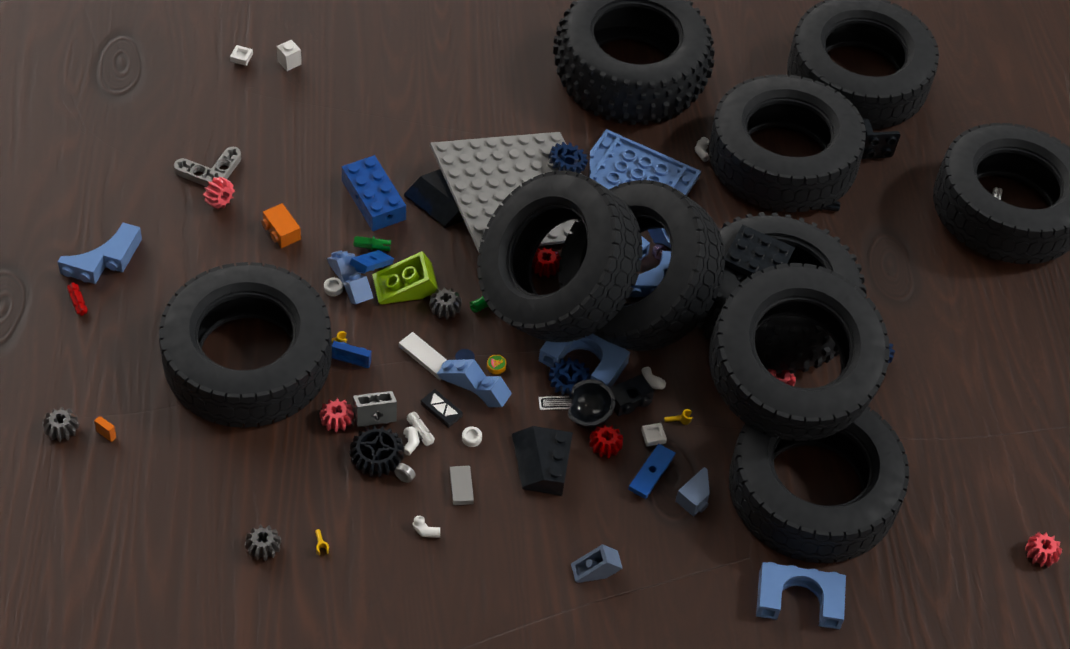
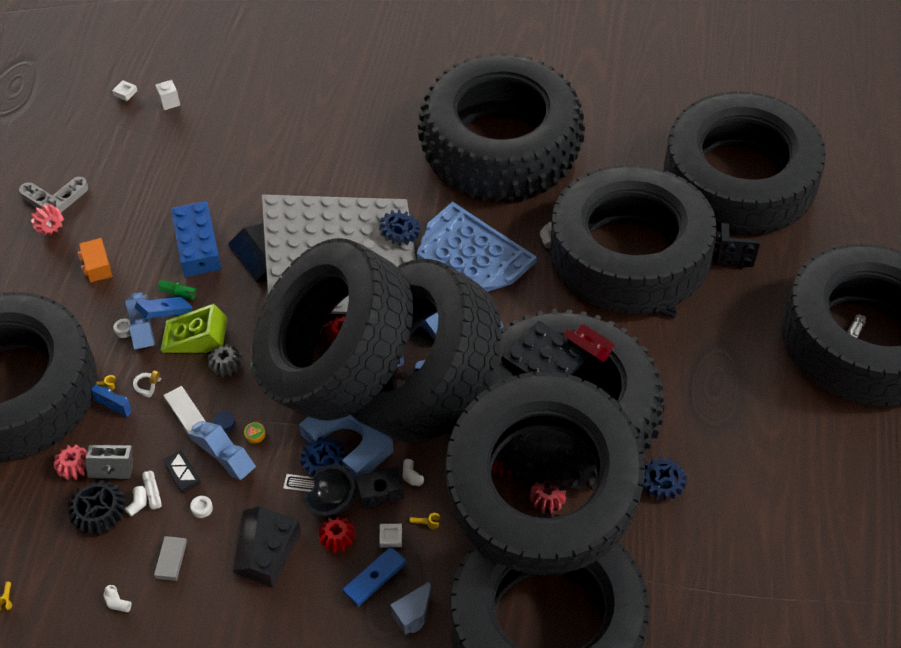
camera: 20 degrees right, 0 degrees up
(377, 343) = (154, 377): none -> white piece
(404, 472) = (115, 535): light grey tile -> none
(794, 237) = (591, 341): none -> dark red bracket

